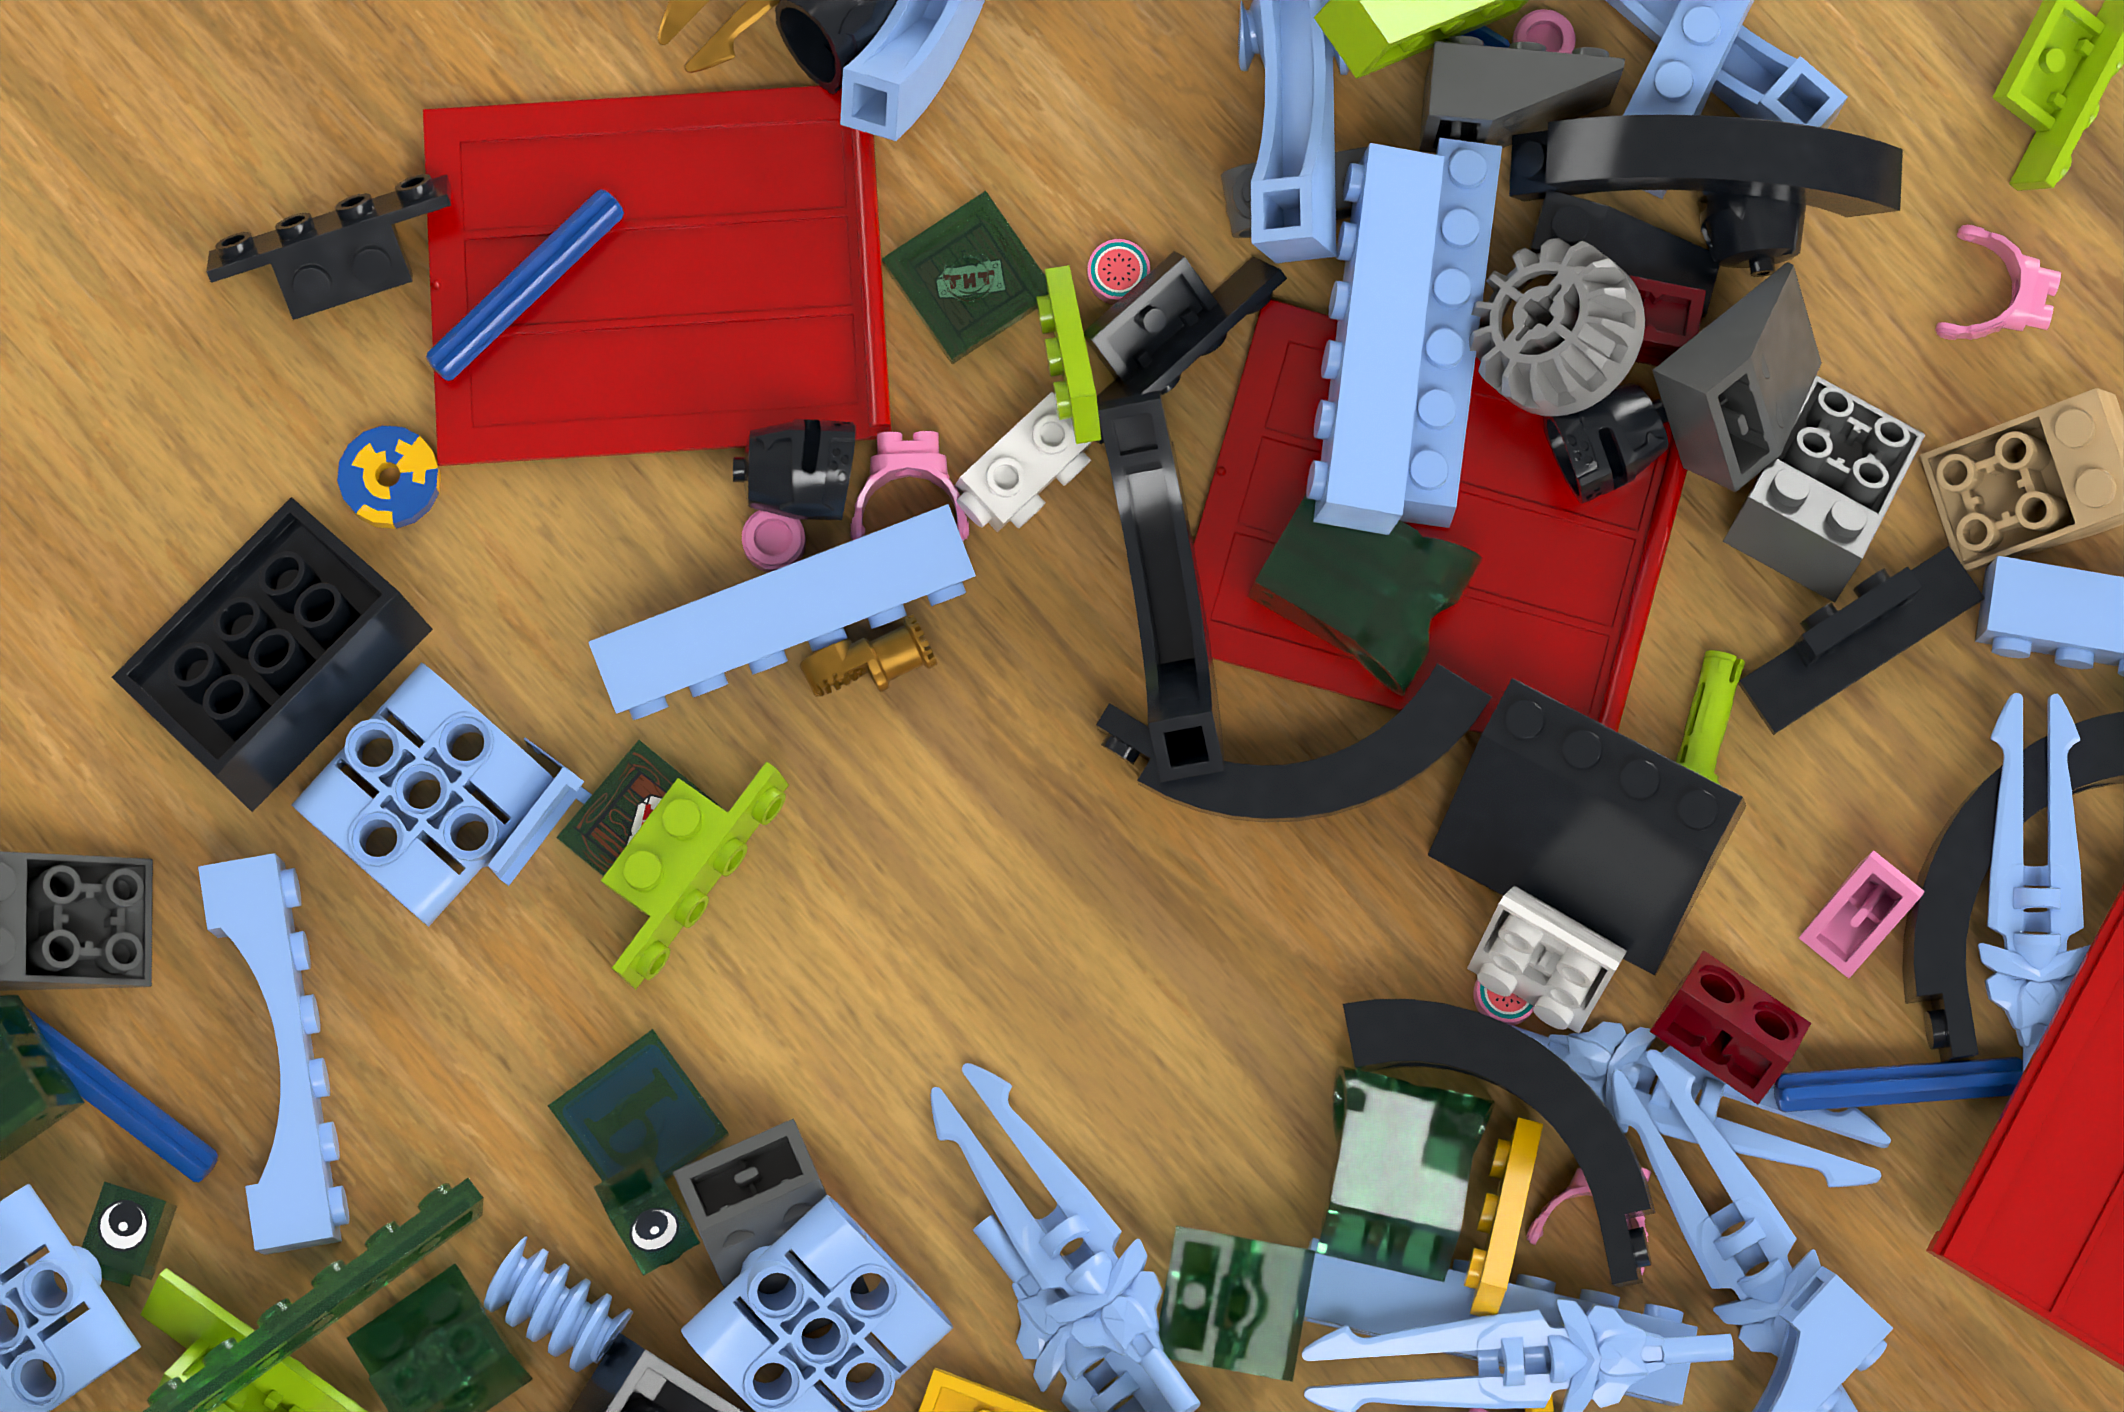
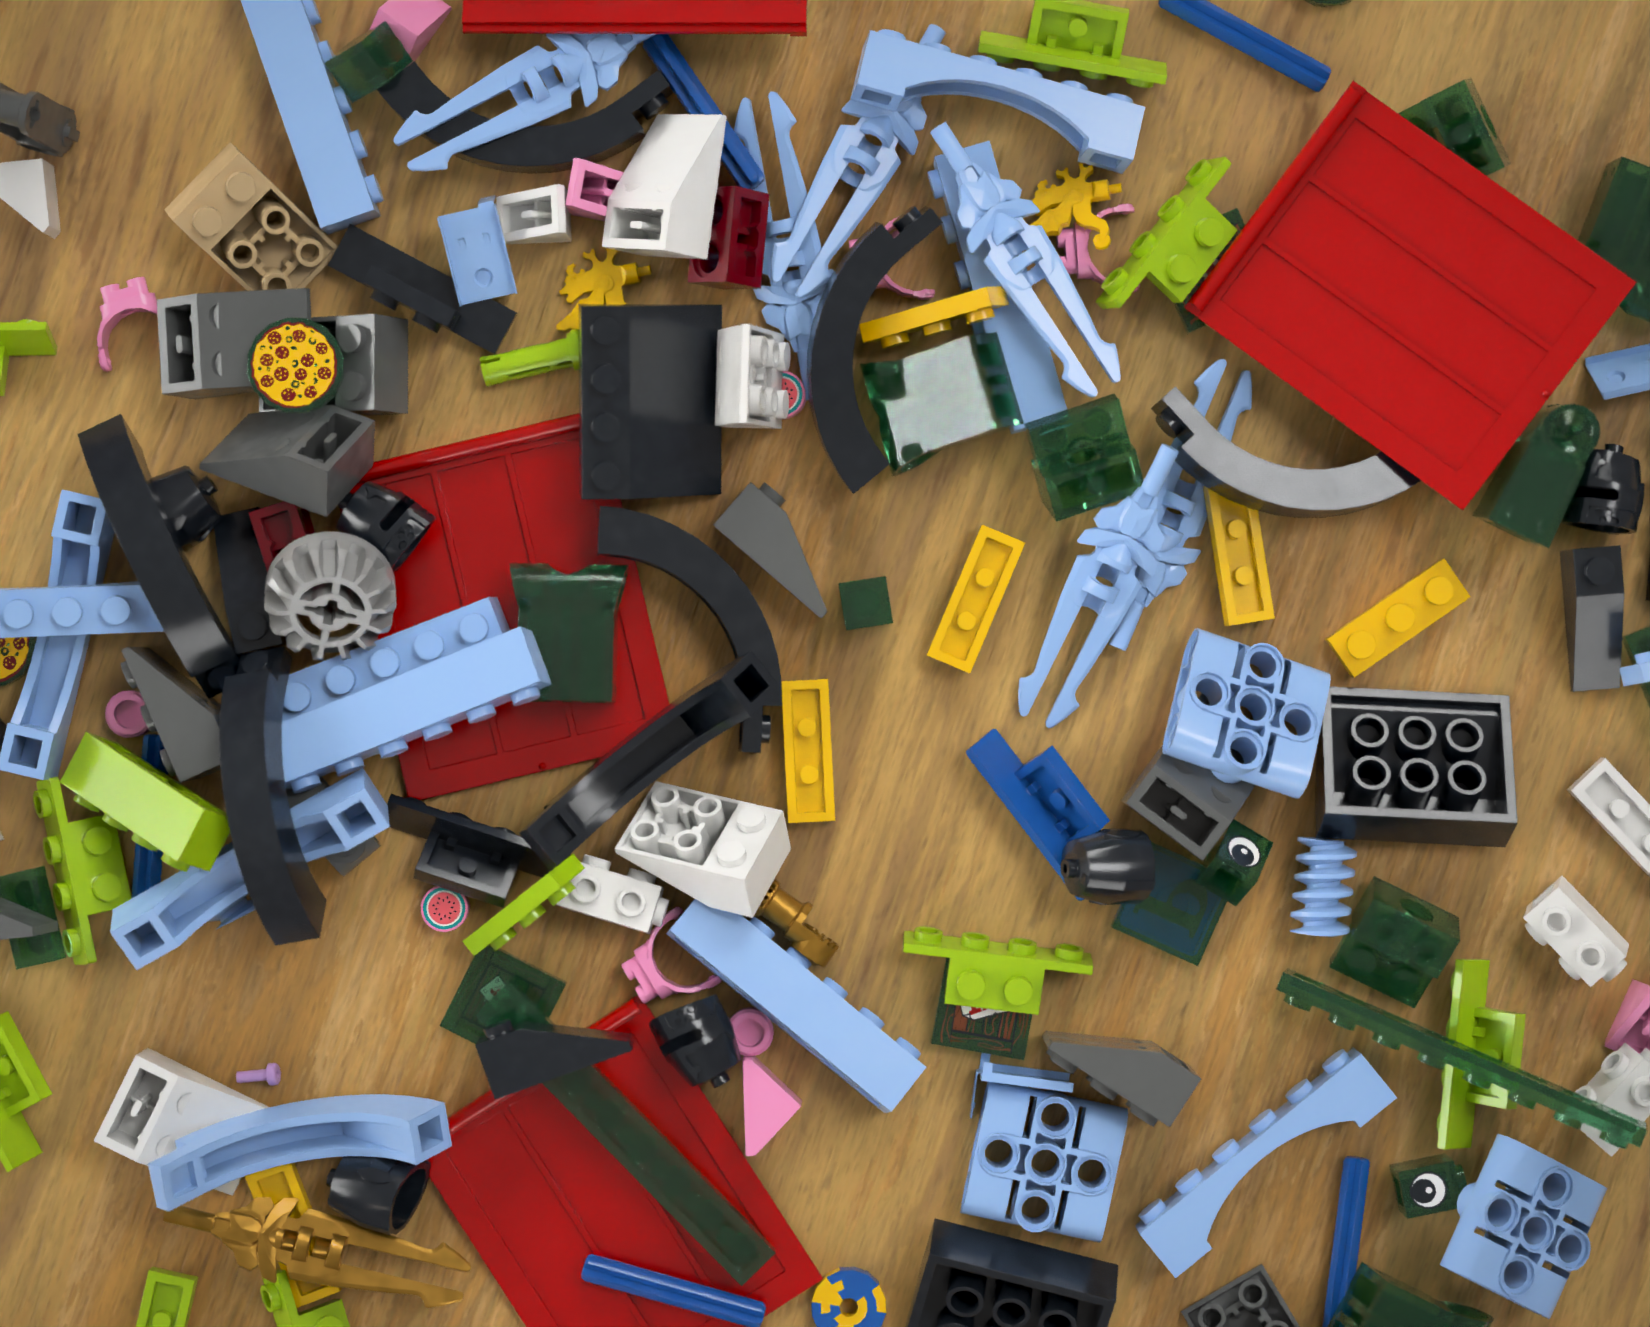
camera: 115 degrees left, 10 degrees up
(471, 954) = (1134, 1068): none -> dark grey slope
(681, 508) = (766, 1104): none -> bright pink slope
(728, 1058) = (1110, 867): none -> black helmet
(740, 329) = (645, 1152): none -> clear green plate
(838, 1030) = (1039, 794): none -> blue bracket
(892, 276) = (538, 1052): none -> black slope
(1020, 604) = (708, 846): none -> white slope
(1065, 787) = (808, 751): none -> yellow plate
(1135, 1084) = (975, 599): none -> yellow plate
(1203, 948) = (865, 603): none -> clear green brick
(1342, 879) = (767, 537): none -> dark grey slope
(1368, 110) = (258, 801): none -> black arch
(1759, 856) = (604, 282): none -> yellow piece
(1827, 986) = (668, 189): none -> white slope
(1849, 434) = (295, 365): none -> tile
(1871, 723) = (477, 253): none -> light blue piece
(1877, 815) = (535, 216): none -> white slope
(1914, 385) = (210, 334): none -> dark grey slope

